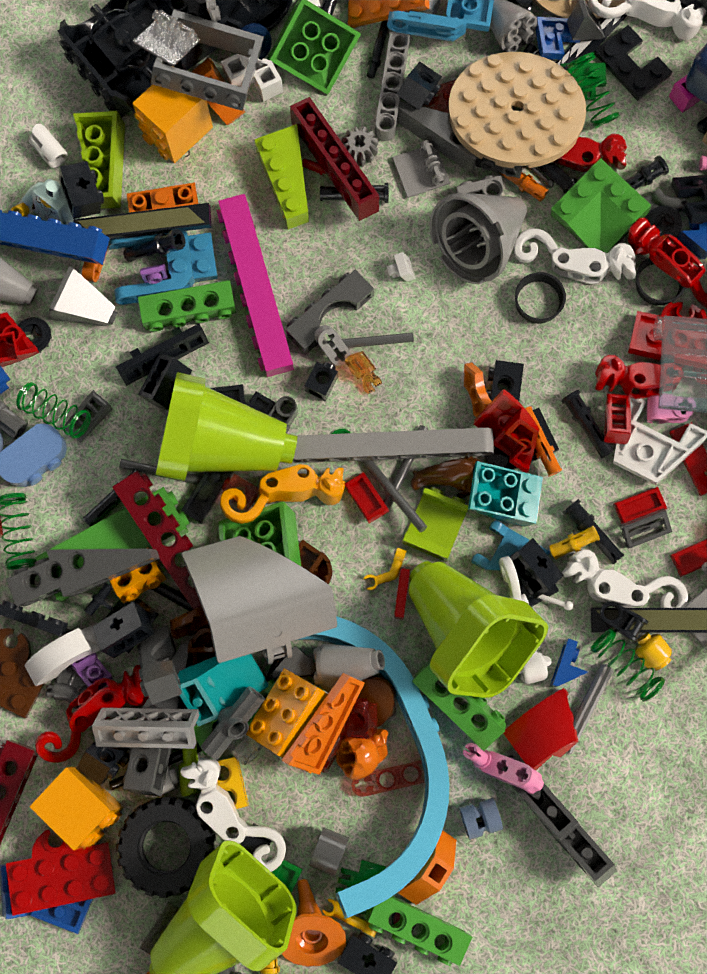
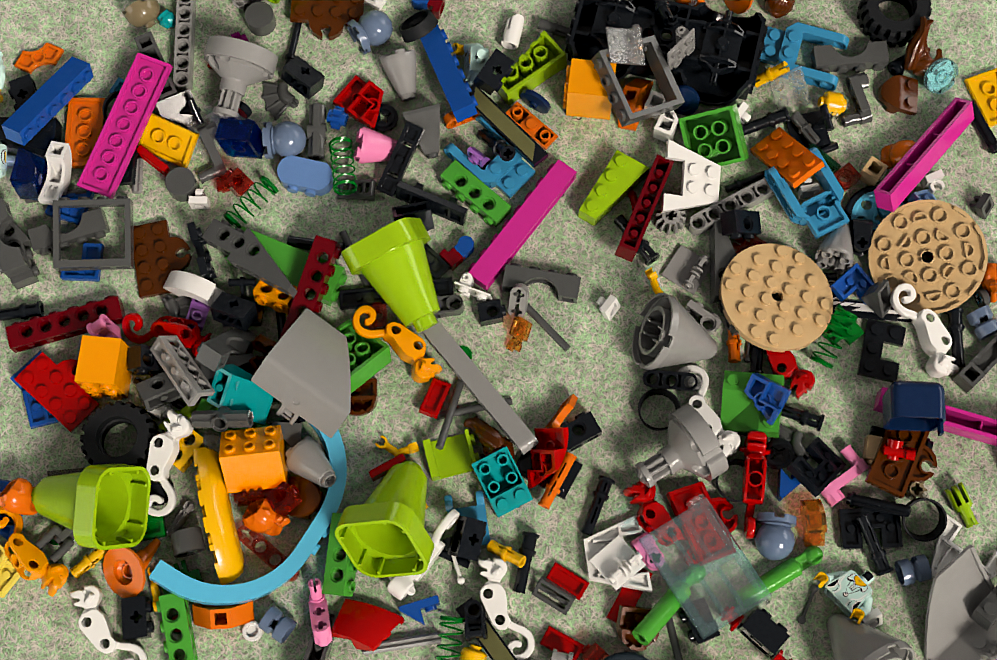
camera: 55 degrees right, 5 degrees down
(34, 780) = (104, 328): none -> bright pink piece
(60, 363) = (373, 146): none -> bright pink cone
(77, 105) = (553, 28): none -> dark grey axle
(94, 348) = (400, 158): none -> black hinge
(139, 177) = (535, 101): none -> dark blue piece
(236, 365) = (458, 253): none -> leg
(280, 384) = (466, 288): none -> white hinge
(296, 842) = (181, 517): none -> light grey axle
(321, 732) = (257, 476): orange wing -> none
(326, 798) = (218, 516): none -> yellow brick
(345, 89) = (698, 183): none -> white wing
(407, 205) = (652, 276): none -> yellow arm
(466, 849) = (251, 631): none -> white tile
(534, 259) = (663, 380): none -> black beam
(606, 290) = (689, 447): none -> light grey piece
(611, 186) = (767, 396): none -> blue slope
(615, 432) = (603, 526): red slope -> none
(662, 444) = (617, 562): none -> white hinge

